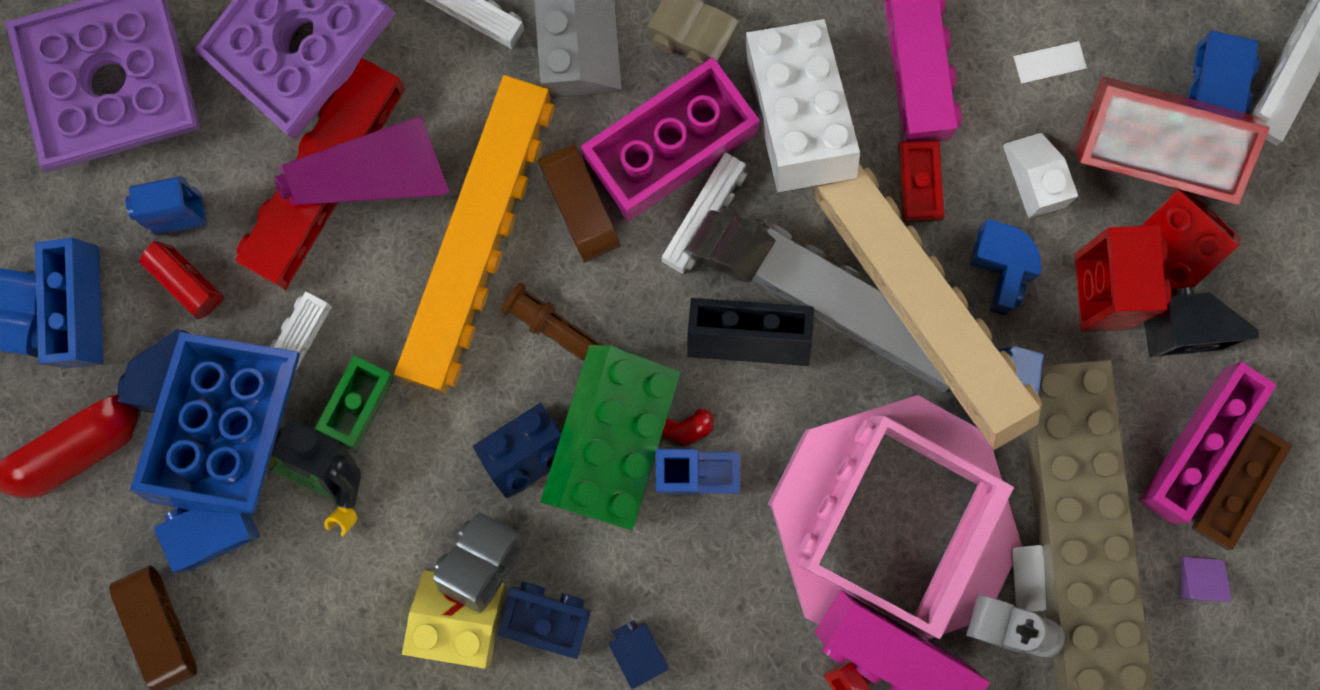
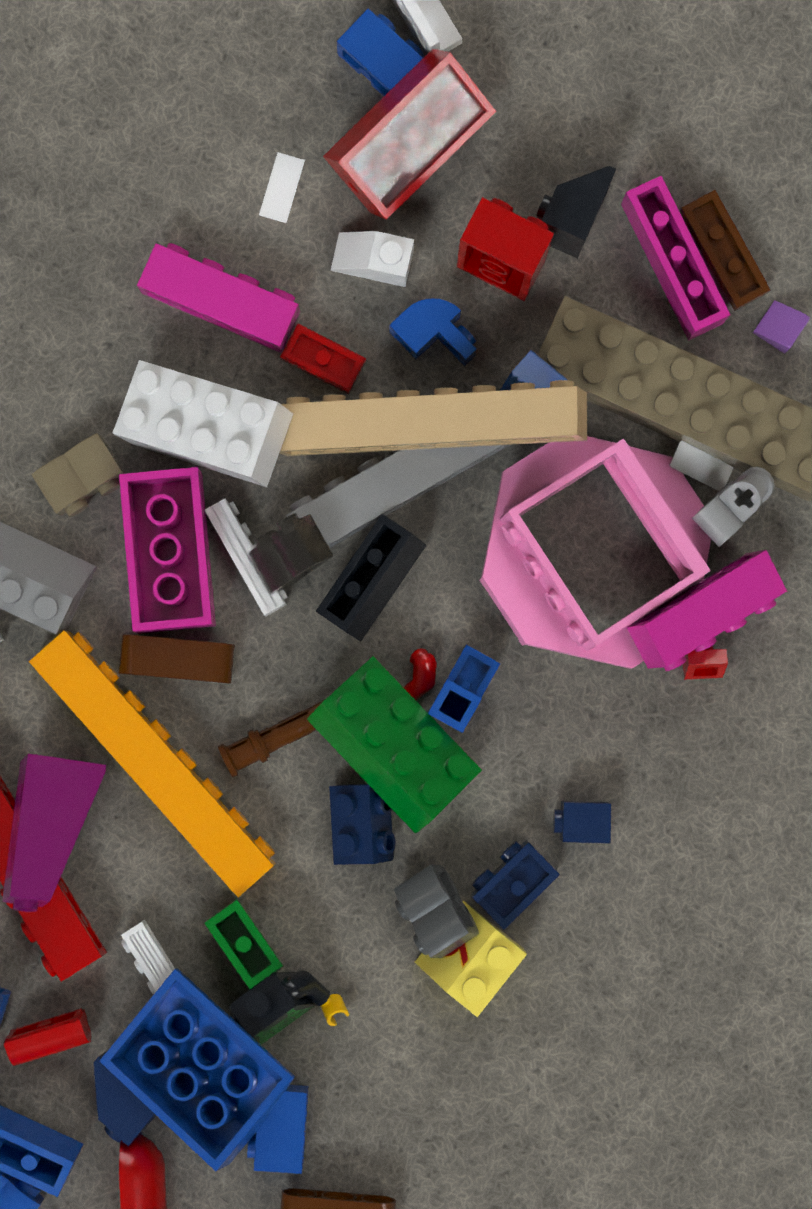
camera: 65 degrees left, 5 degrees up
(1194, 238) = (500, 167): red bracket -> none

